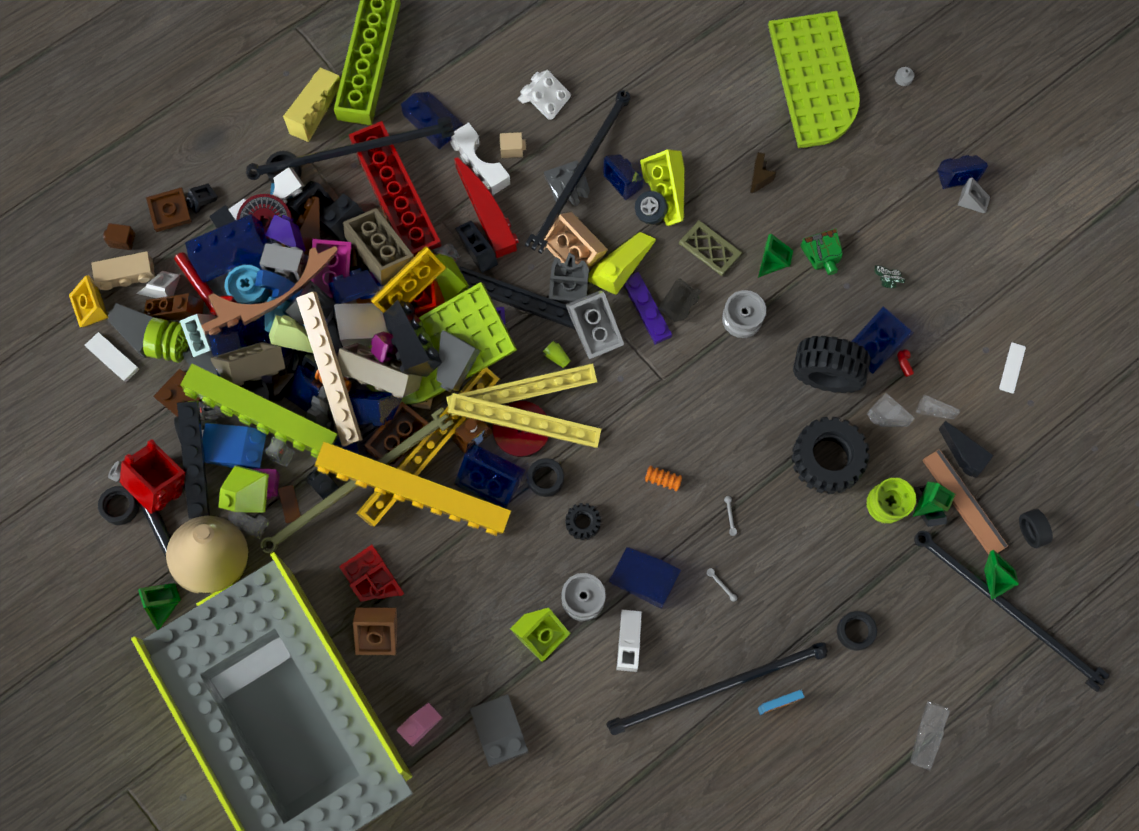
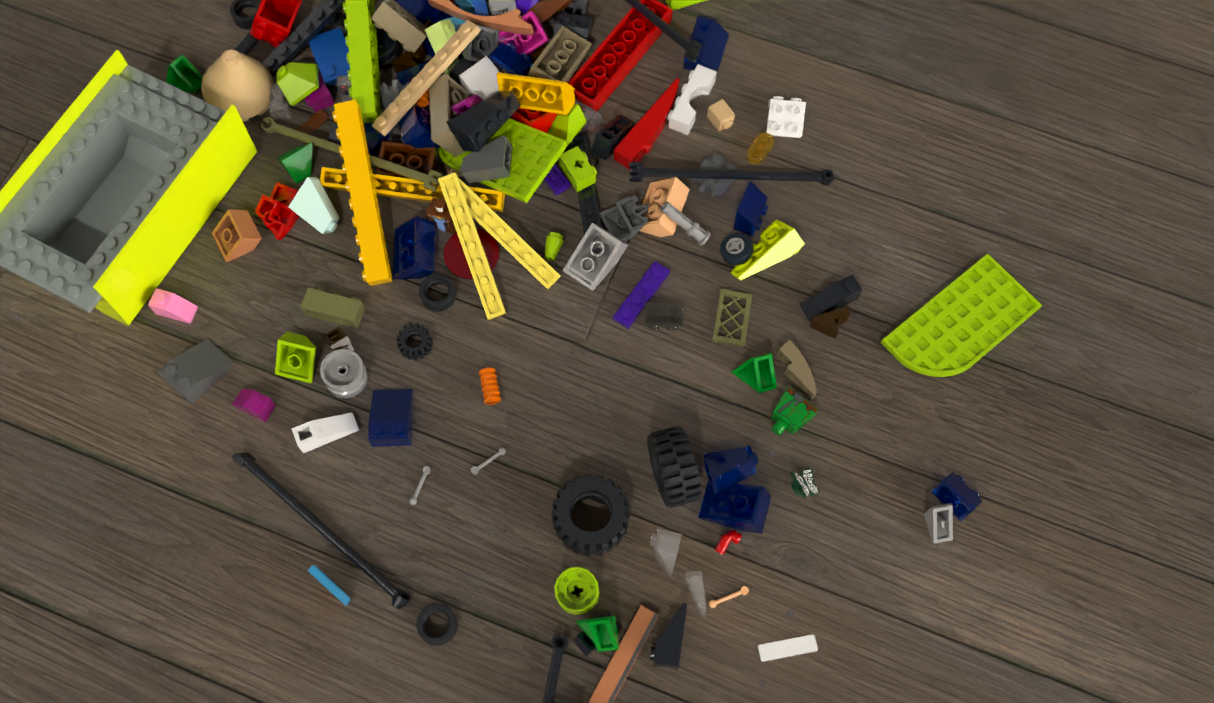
camera: 60 degrees right, 5 degrees down
(327, 537) = (298, 162): none -> green slope
(395, 541) = (315, 206): none -> light aqua slope
(507, 290) = (577, 168): none -> lime brick
(507, 576) = (333, 307): none -> olive brick
(544, 588) = (338, 340): none -> dark brown slope
(563, 134) = (760, 150): none -> clear yellow plate
(563, 694) = (254, 404): none -> magenta slope
(611, 231) = (691, 227): none -> light grey pin
(619, 265) = (665, 252): neon yellow wedge -> none
(739, 160) = (832, 297): none -> black slope
(744, 314) = (683, 373): light grey wheel -> none
(788, 223) = (797, 369): none -> dark tan slope
(847, 322) = (729, 467): none -> clear blue slope
(904, 76) = (1022, 399): light grey tile -> none
(950, 374) = (744, 591): none -> light nougat hinge

